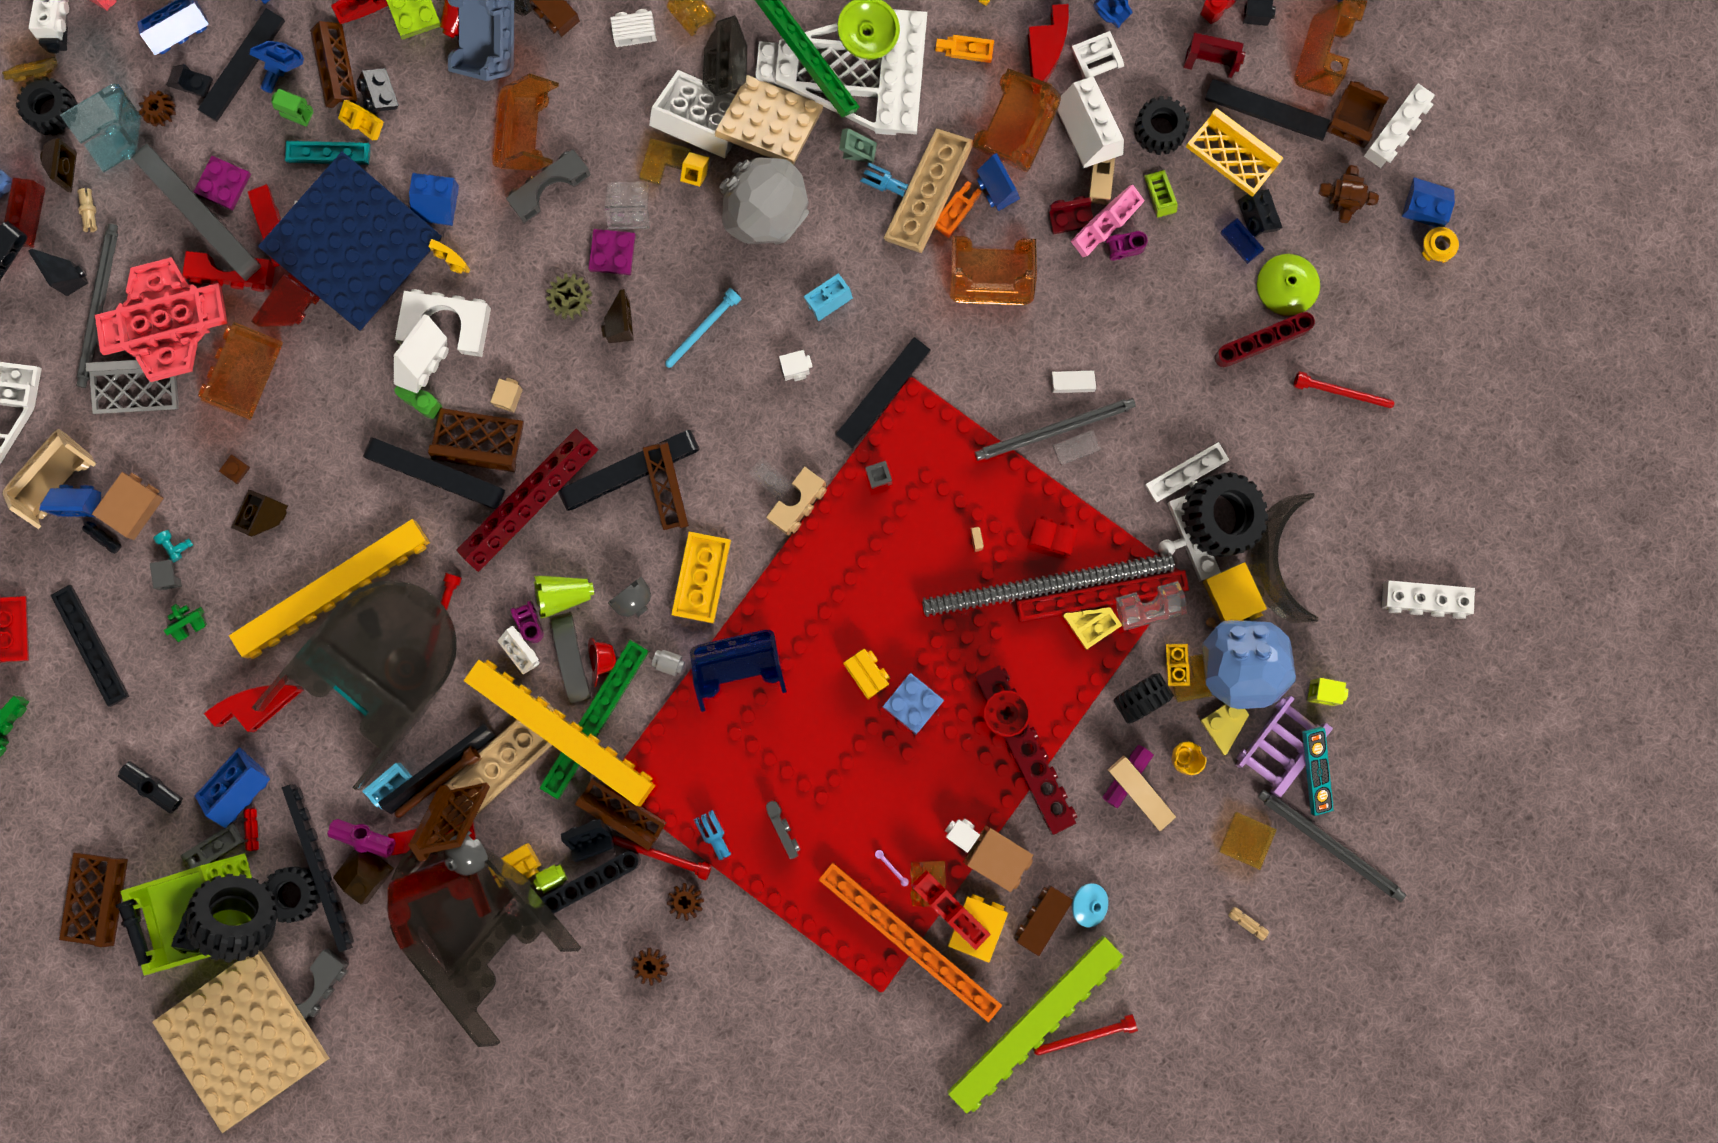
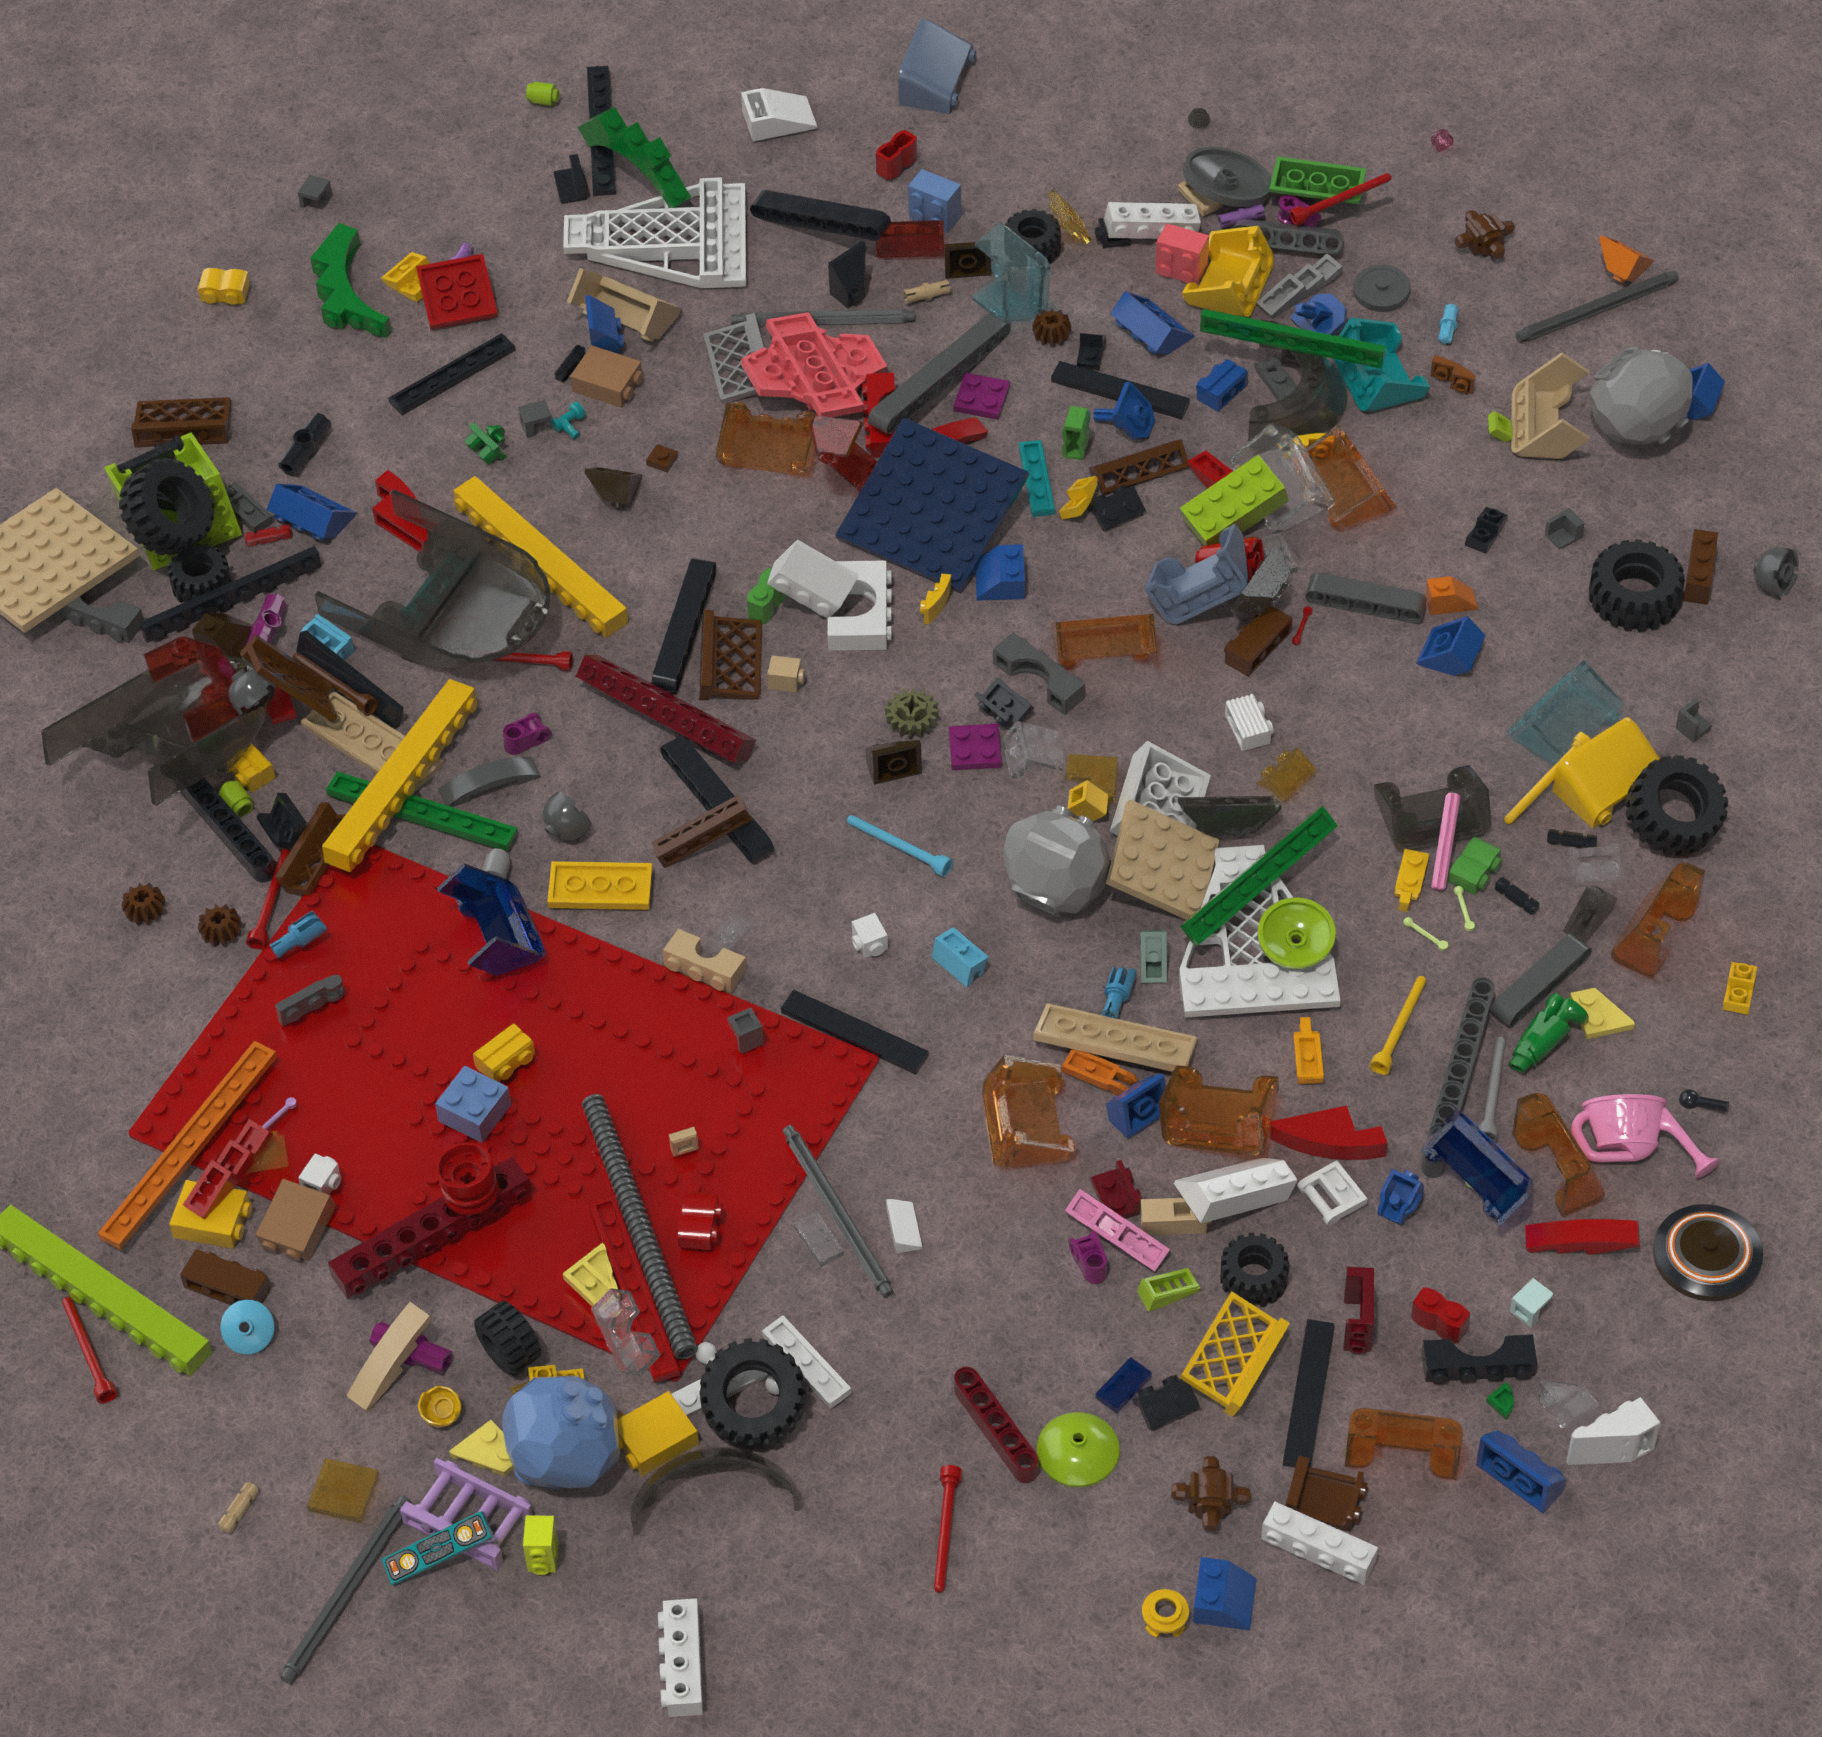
camera: 80 degrees right, 30 degrees down
(518, 650) = (491, 729): white bracket -> none
(560, 593) = (560, 751): lime cone -> none
(575, 220) = (1004, 703): none -> black bracket
(601, 658) = (489, 801): red piece -> none

